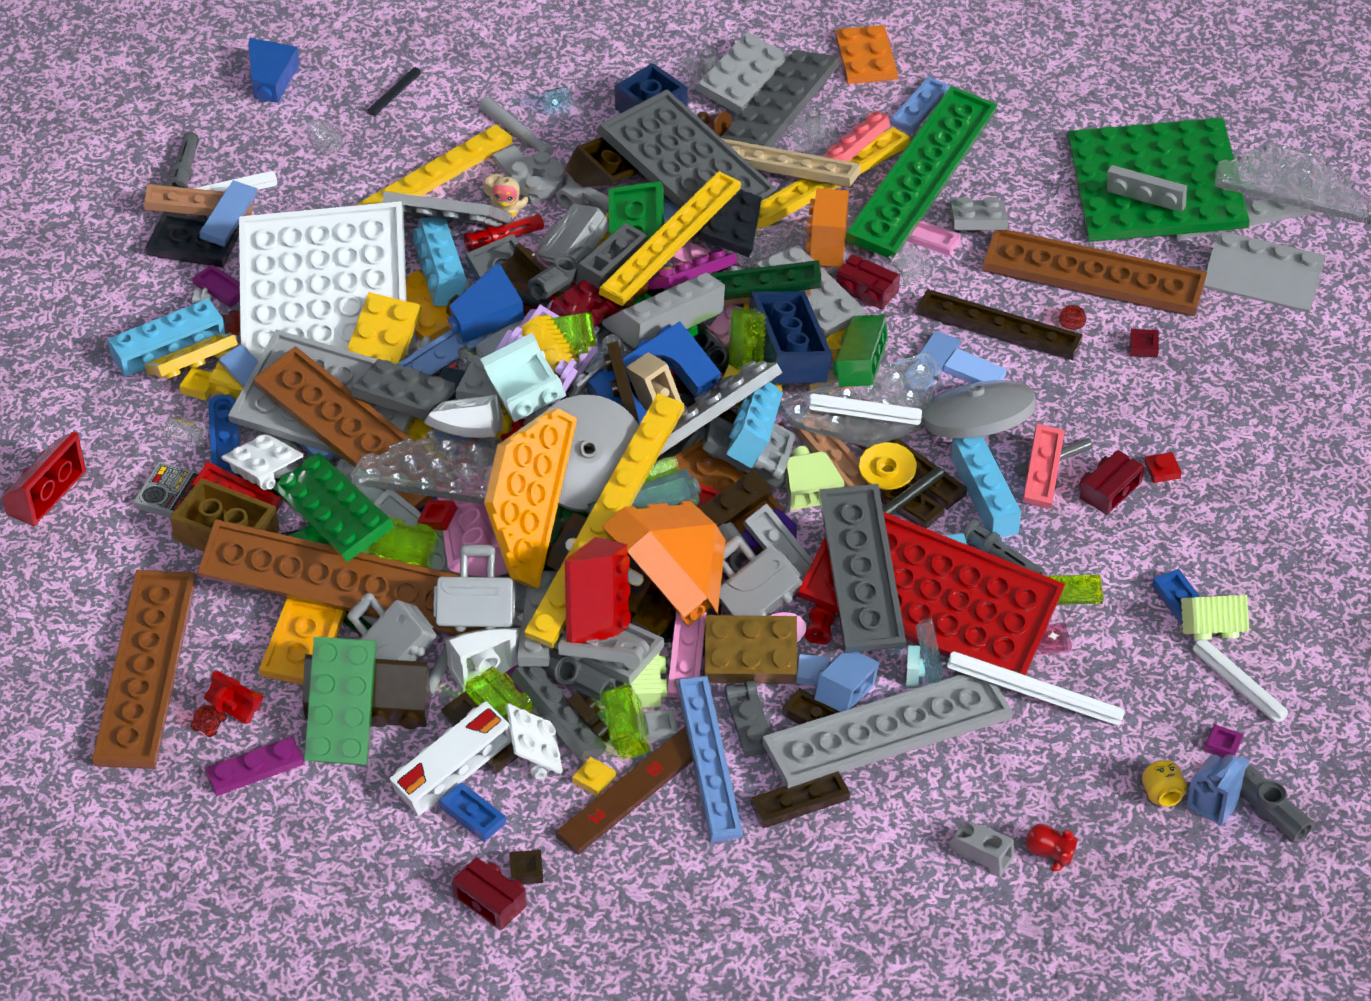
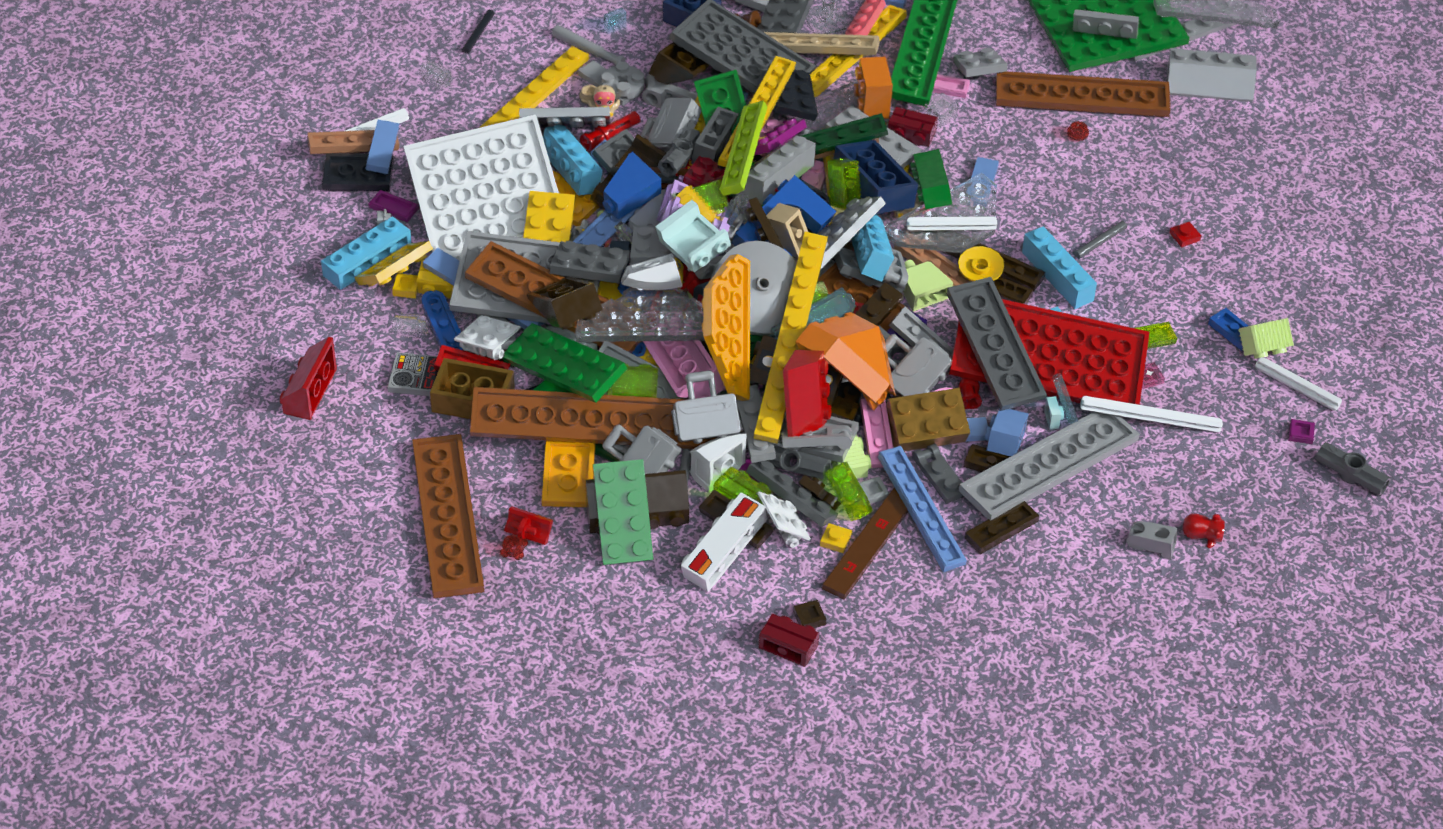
camera: 15 degrees left, 0 degrees up
(181, 171) = (327, 118): dark grey pin -> none
(232, 322) = (418, 232): clear red plate -> none
(254, 766) = (563, 576): magenta plate -> none
(271, 68) = (370, 26): blue slope -> none
(353, 434) = (566, 301): none -> dark brown slope
(438, 514) = (653, 354): red plate -> none
(472, 811) = (752, 580): blue plate -> none
(629, 279) = (743, 148): none -> lime plate
(913, 491) = (1010, 276): pearl dark grey bar -> none
(973, 368) = (1018, 182): light blue tile -> none
(979, 409) = (1037, 210): light grey dish -> none
(991, 542) = (1070, 307): dark grey pin -> none
(1000, 324) = (1025, 144): dark brown plate -> none
(1043, 466) = (1098, 246): coral plate -> none
(1111, 481) = (1152, 250): dark red brick -> none
(1144, 343) = (1139, 142): dark red plate -> none
(1164, 783) = (1271, 468): yellow head -> none
(1217, 787) = (1314, 463): medium blue piece -> none

